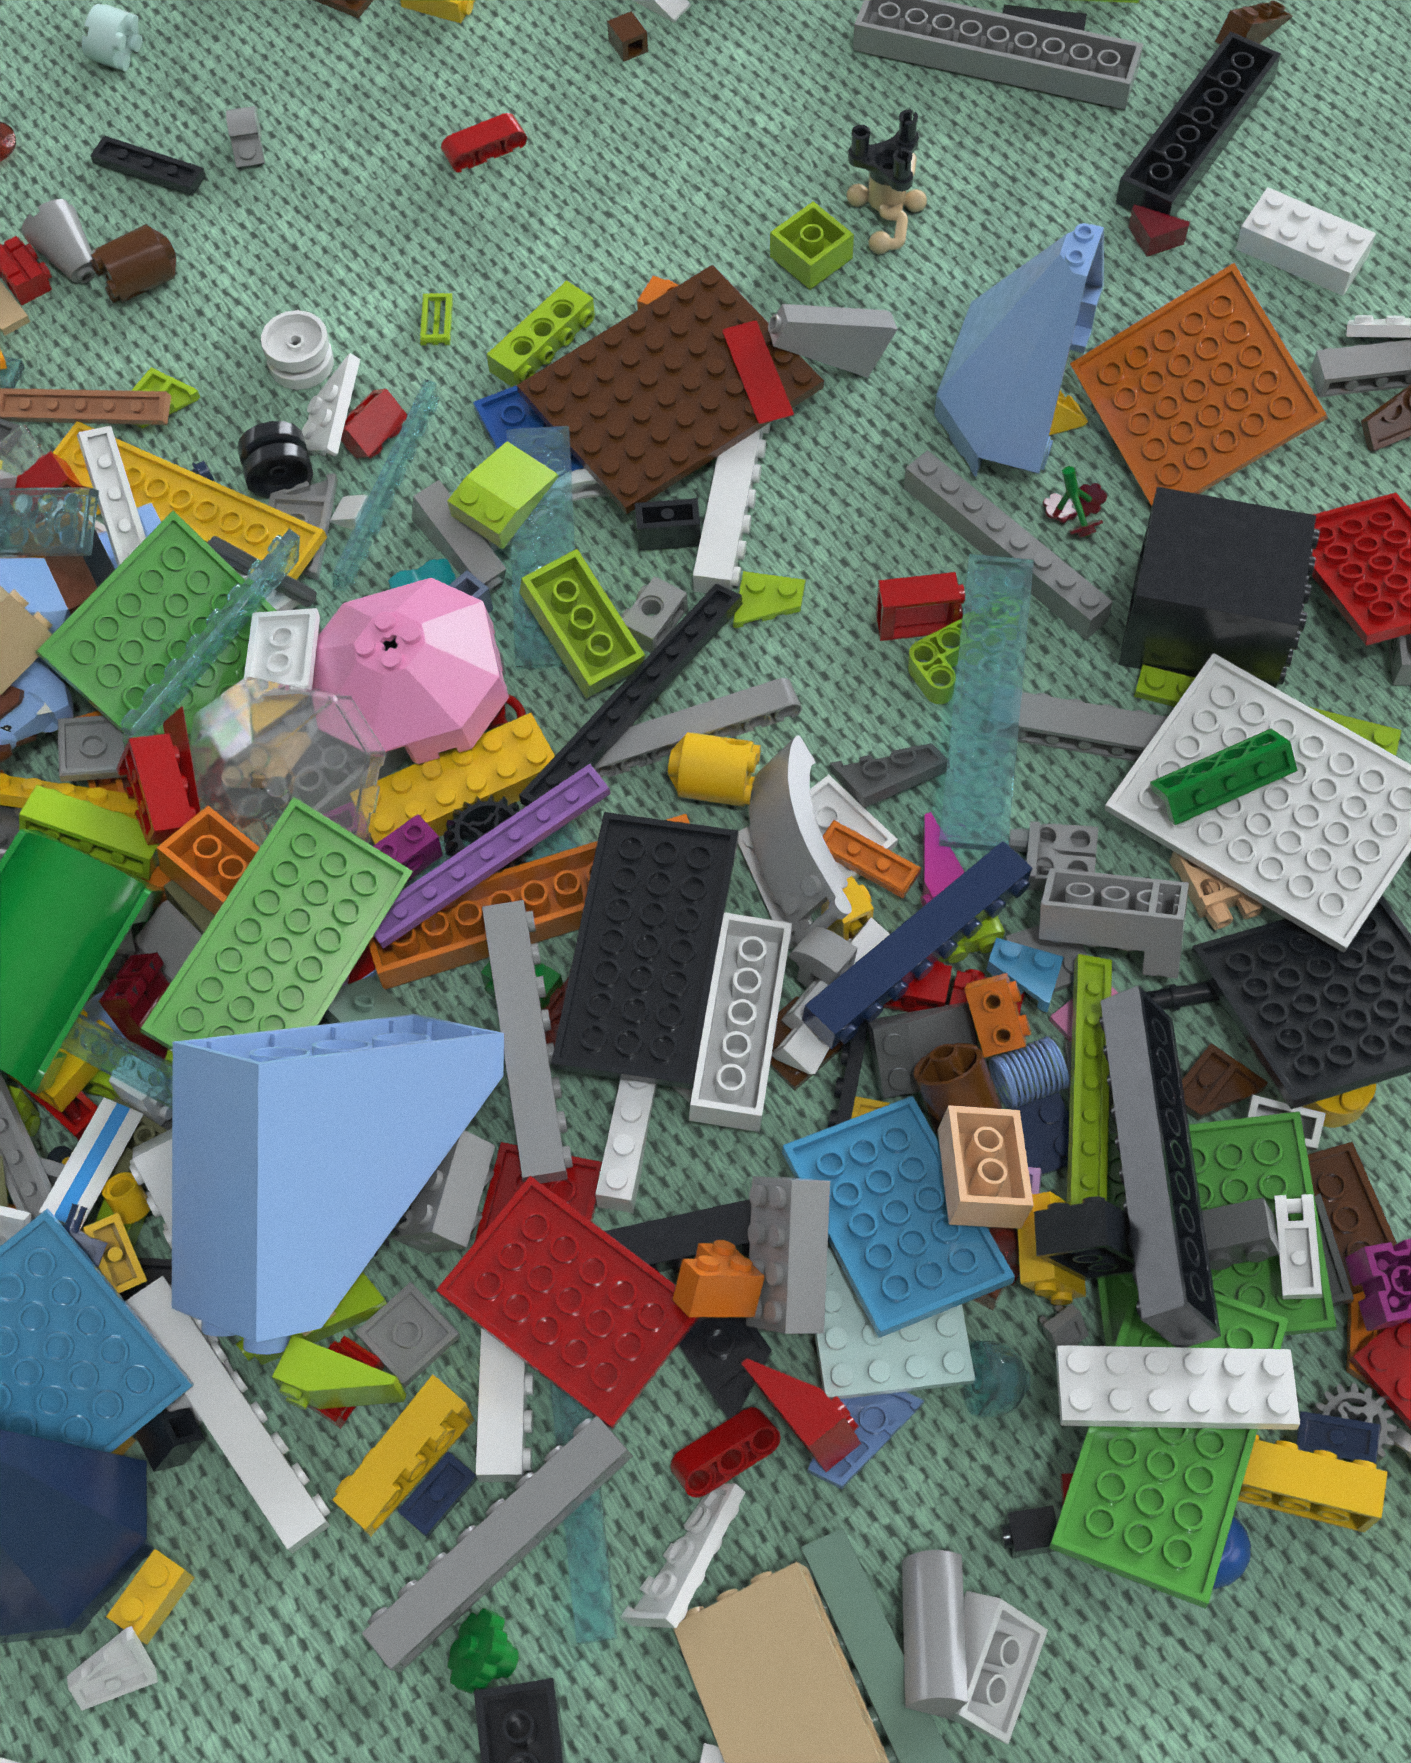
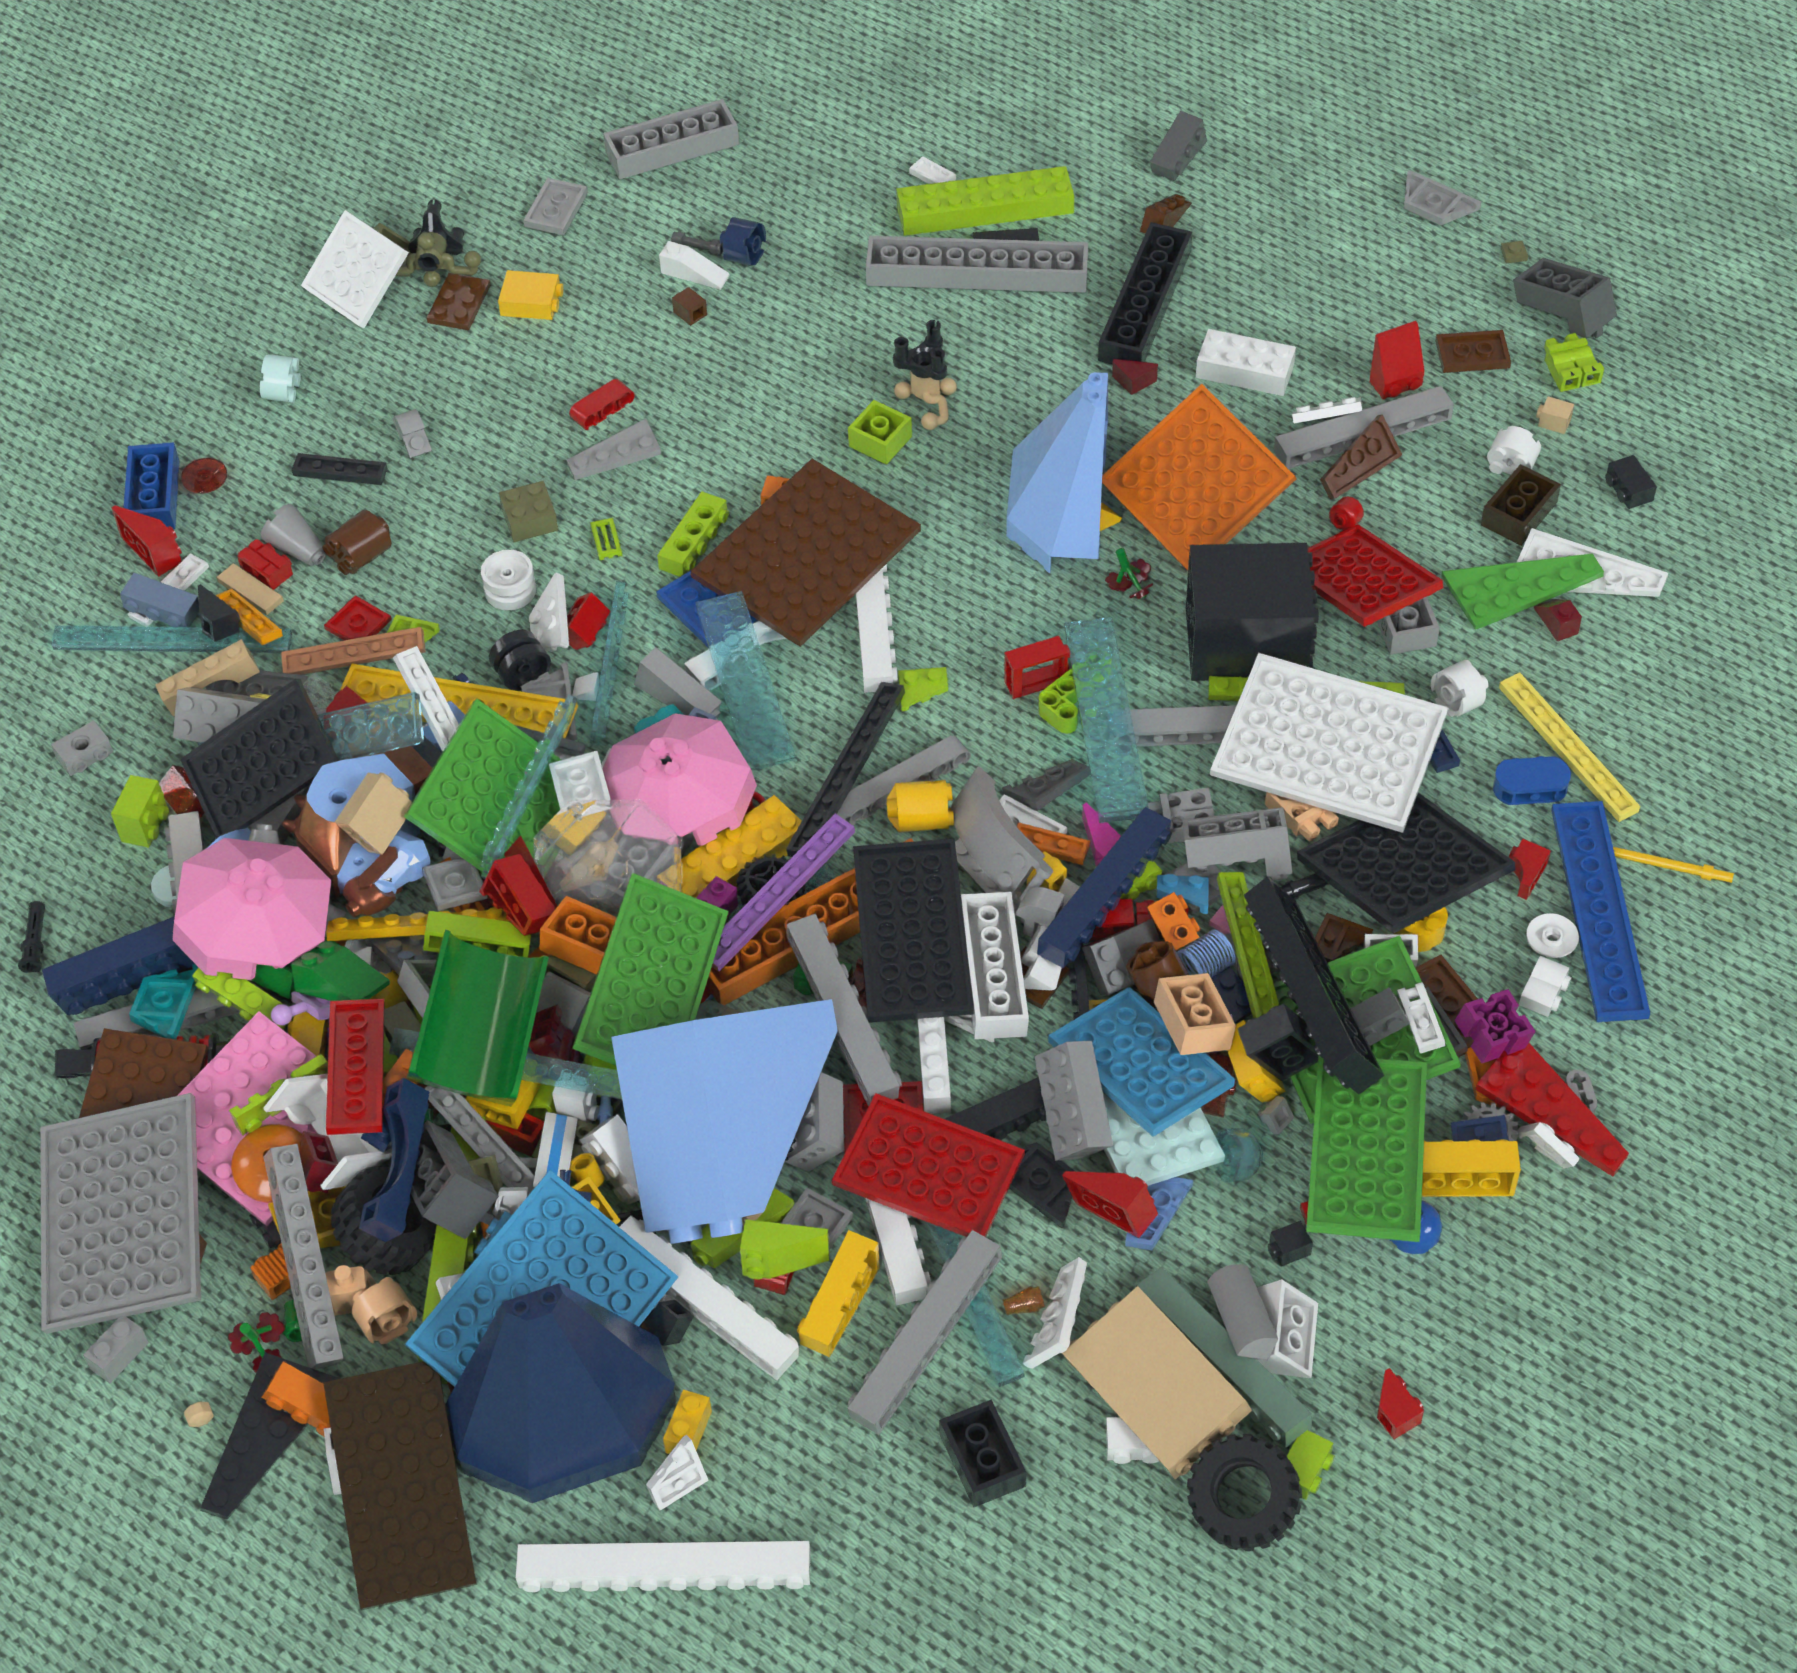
camera: 15 degrees left, 10 degrees down
(106, 365) = (357, 620): none -> red tile
(351, 264) = (528, 511): none -> olive brick
(437, 1494) = (870, 1317): dark blue plate -> none
(481, 1652) = (933, 1400): green plant -> none
(488, 206) = (616, 451): none -> light grey wing
(501, 493) = (706, 648): lime slope -> none
(581, 623) = (793, 726): lime brick -> none
(649, 1525) = (1025, 1301): none -> clear orange cone
(660, 599) = (840, 713): light grey brick -> none
(668, 524) = (833, 648): black brick -> none
(718, 1283) = (1032, 1129): orange brick -> none
(725, 1452) = (1077, 1230): red beam -> none
(757, 372) = (870, 527): red sticker -> none
(834, 335) = (919, 491): light grey slope -> none
(998, 535) = (1074, 605): light grey brick -> none
(1176, 1387) = (1363, 1117): white plate -> none
(1225, 776) = (1289, 731): green fence -> none
(1385, 473) = (1346, 513): none -> red head

